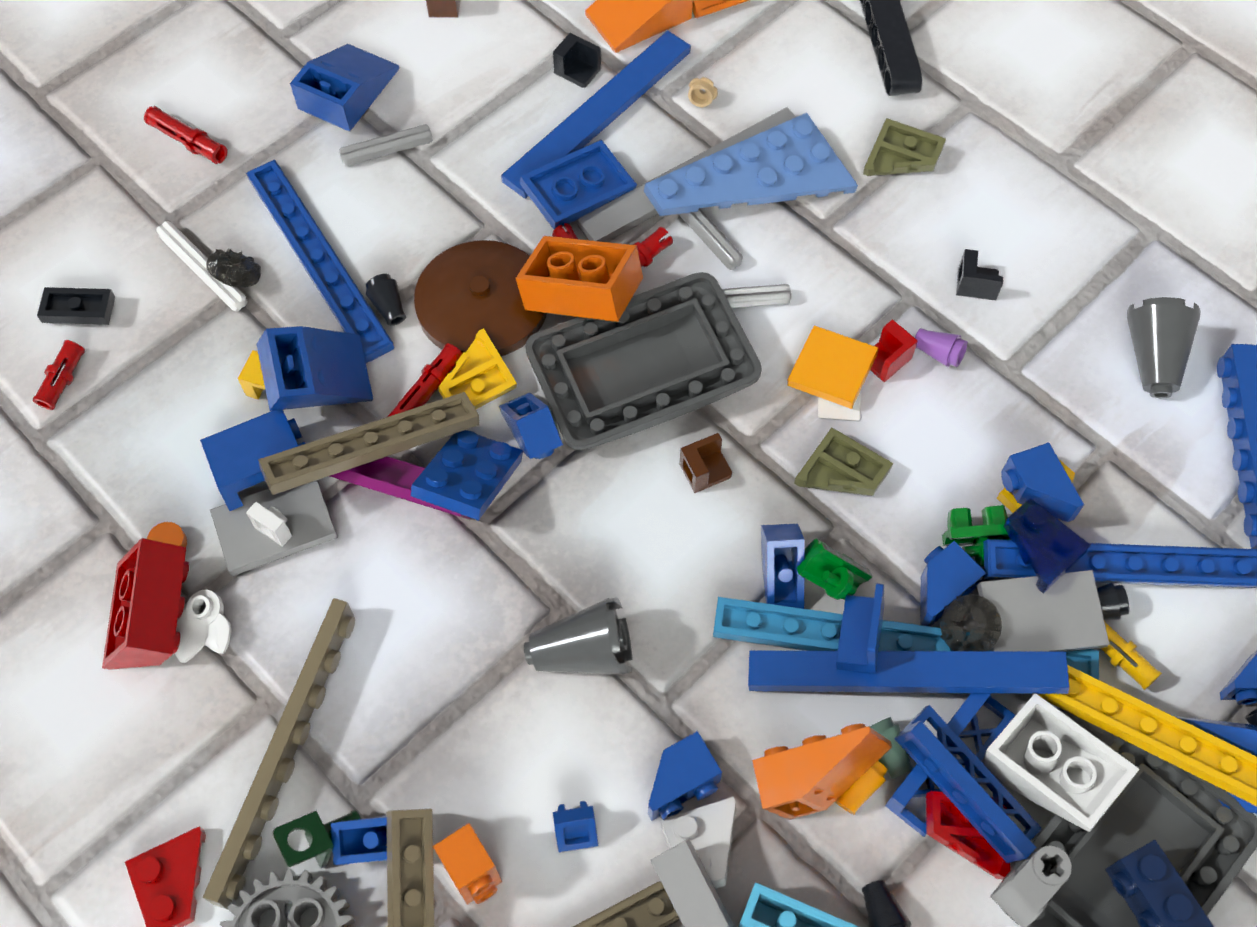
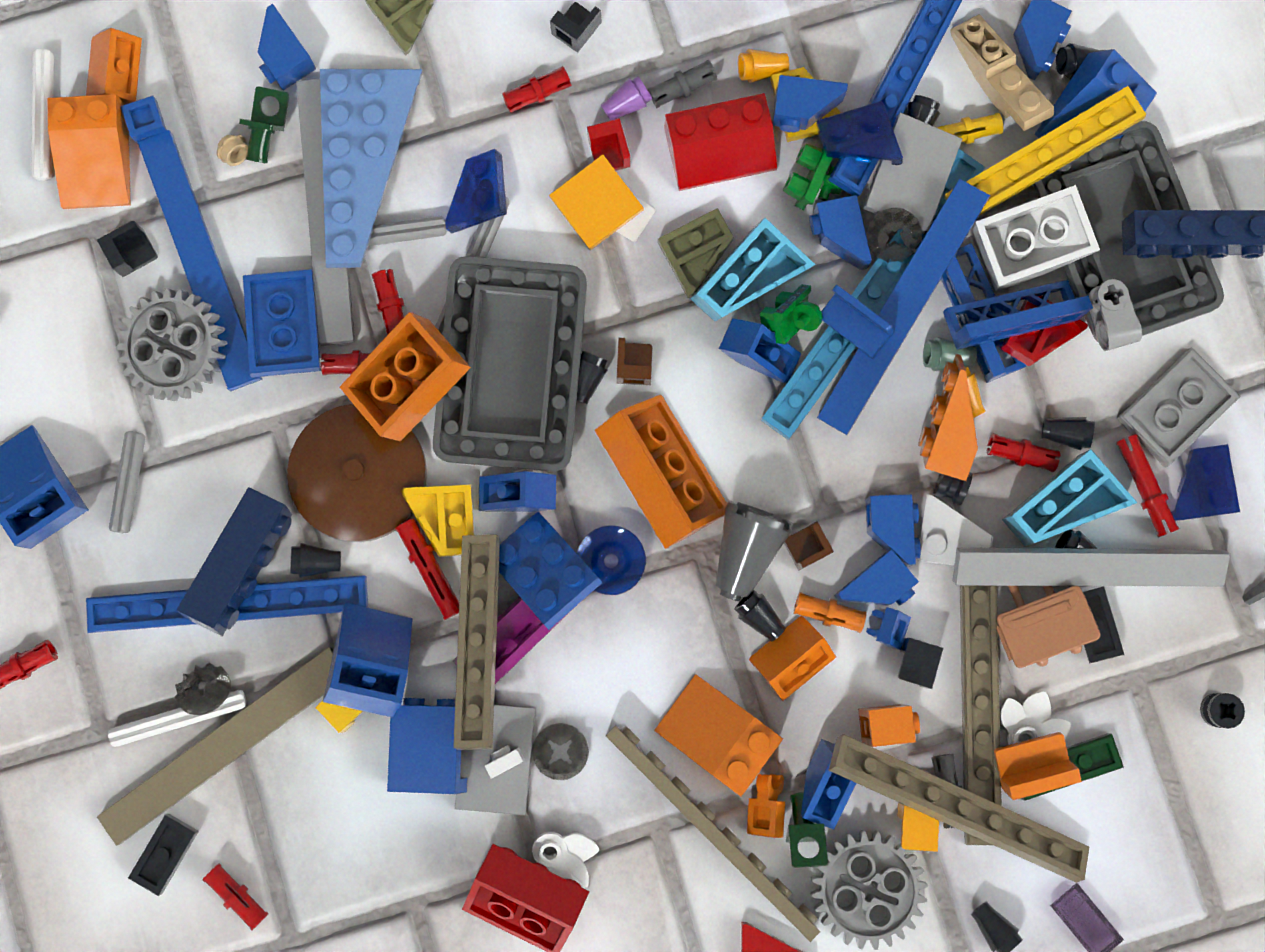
camera: 65 degrees left, 20 degrees up
(168, 533) = (464, 858): orange tile -> none
(170, 299) = (217, 750): none -> dark tan tile
(311, 588) = (560, 734): none -> clear smoke gear
(328, 791) = (766, 812): none -> orange plate
(352, 236) = (235, 562): none -> dark blue brick
(383, 713) = (718, 735): none -> orange slope
(495, 745) = (793, 657): none -> orange panel
(507, 515) = (623, 545): none -> clear blue dish
(523, 691) = (760, 615): none -> black cone
(536, 120) = (184, 316): none -> light grey gear
(551, 872) = (919, 662): none -> black panel
(561, 759) = (830, 612): none -> orange pin
(616, 704) = (808, 546): none -> reddish brown panel
(616, 791) = (881, 583): none -> blue slope
(618, 533) = (662, 470): none -> orange slope
(670, 433) = (590, 375): none -> black cone
(687, 23) = (143, 118): none -> blue tile
(738, 102) = (264, 125): none -> dark green bracket
(756, 820) = (952, 488): none -> black wheel
(780, 272) = (478, 193): none -> clear blue wing
(804, 85) = (282, 52): none -> blue slope
(834, 875) = (1023, 452): none -> red pin
(850, 516) = (751, 269): none -> medium azure wedge
(900, 275) = (536, 89): none -> red pin
(956, 437) = (721, 141): none -> red slope
(987, 383) = (682, 83): none -> dark grey pin
(1051, 431) = (759, 65): none -> light orange cone
(1201, 654) = (998, 75): none -> tan slope

